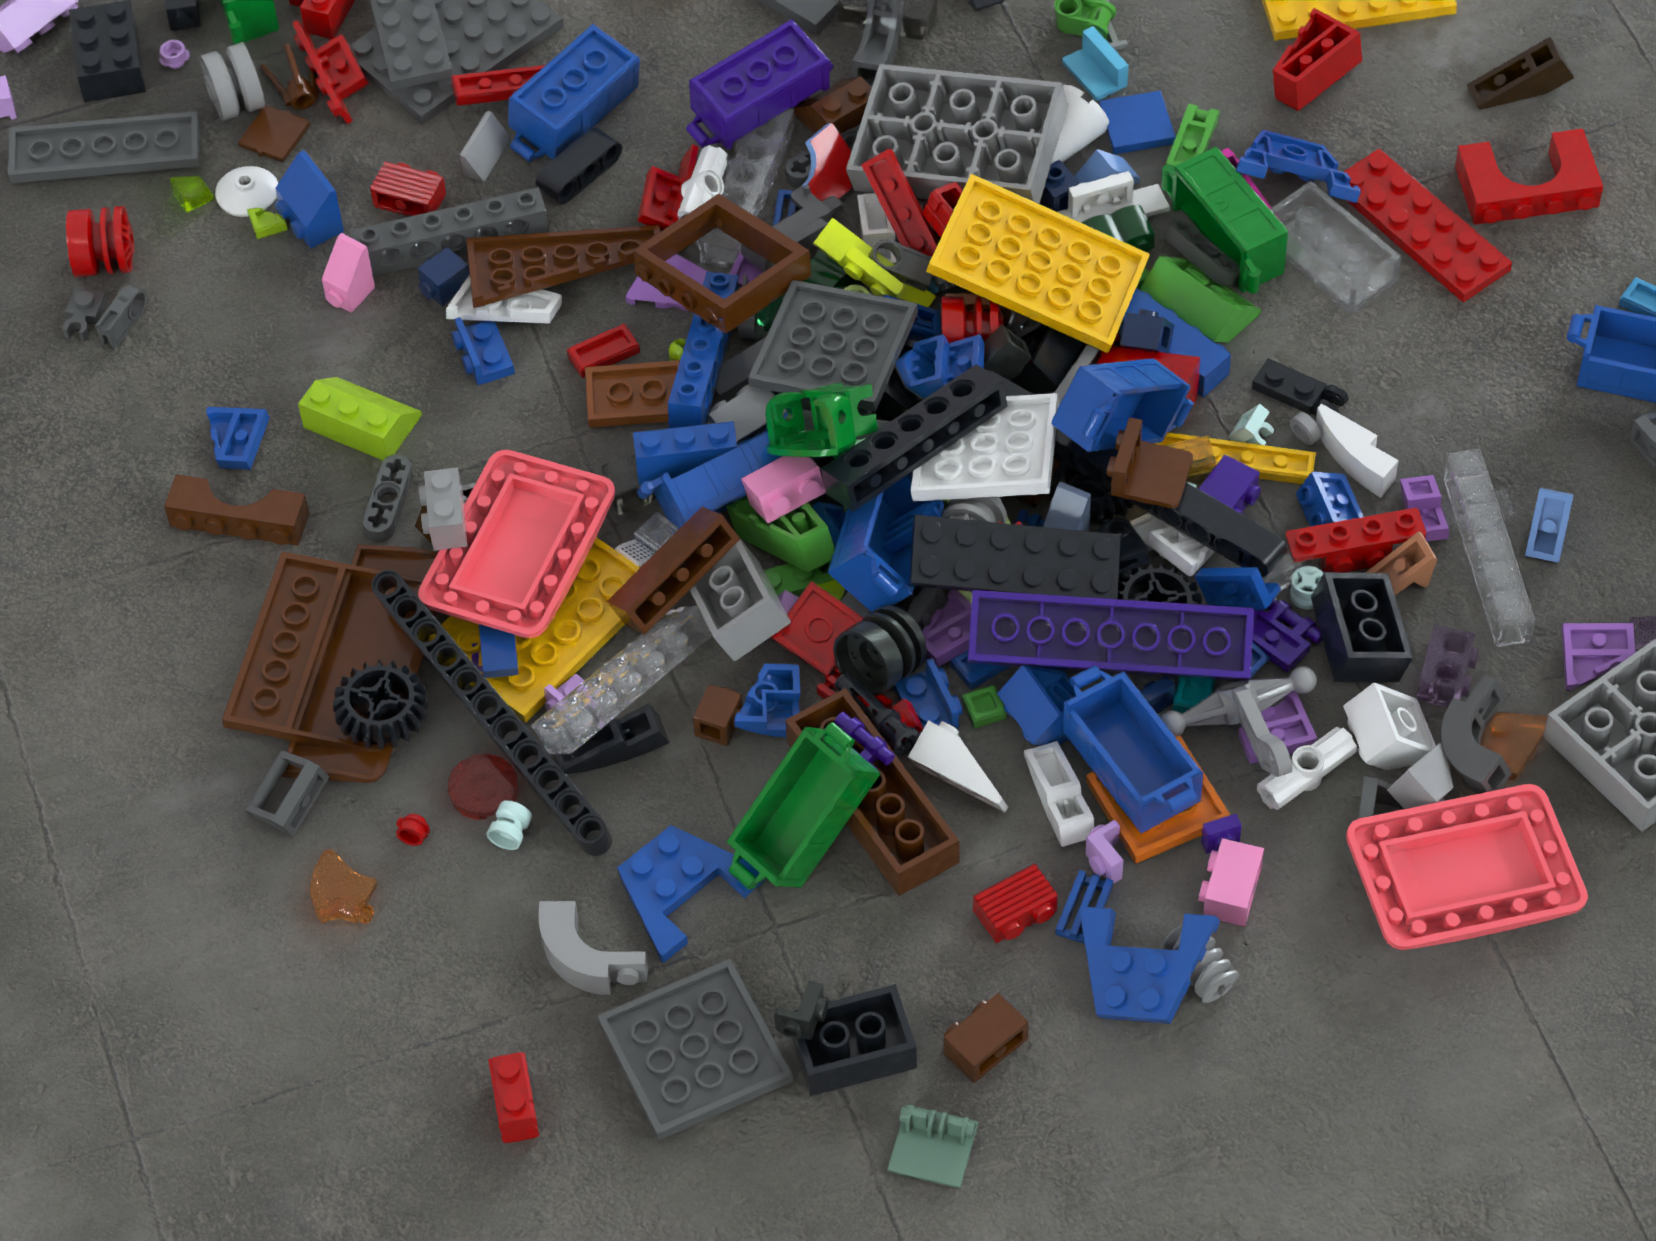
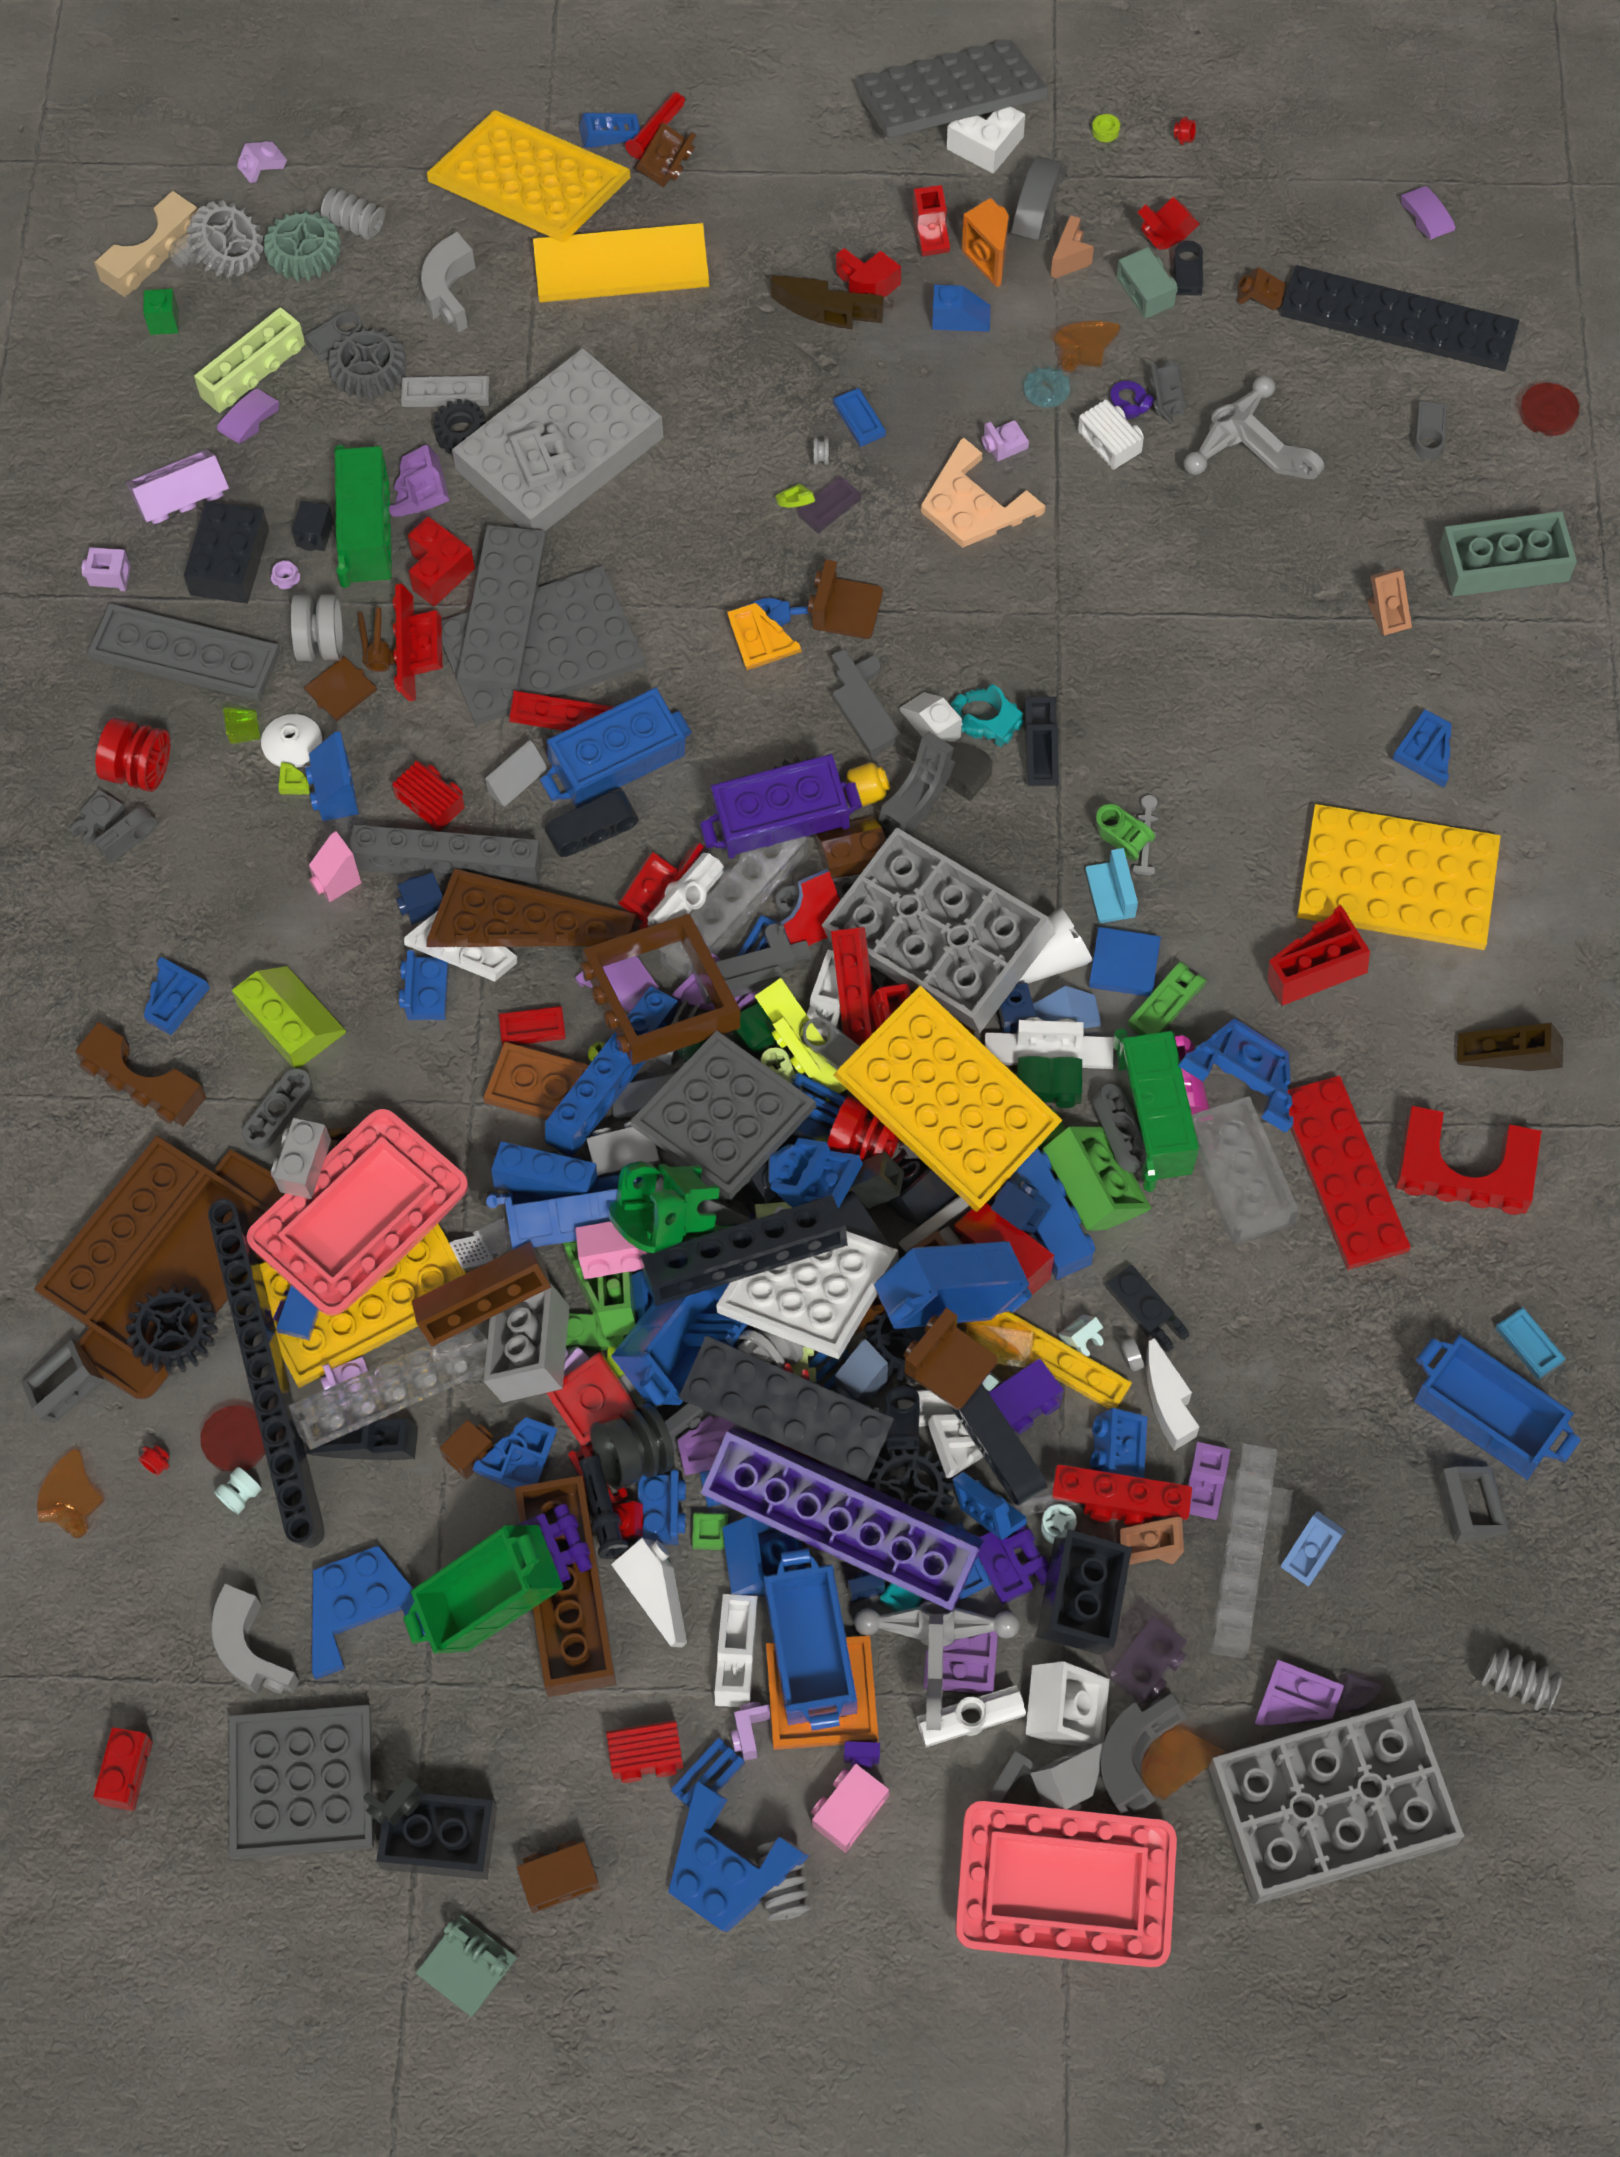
camera: 20 degrees right, 10 degrees up
(833, 47) = (870, 782): none -> yellow head

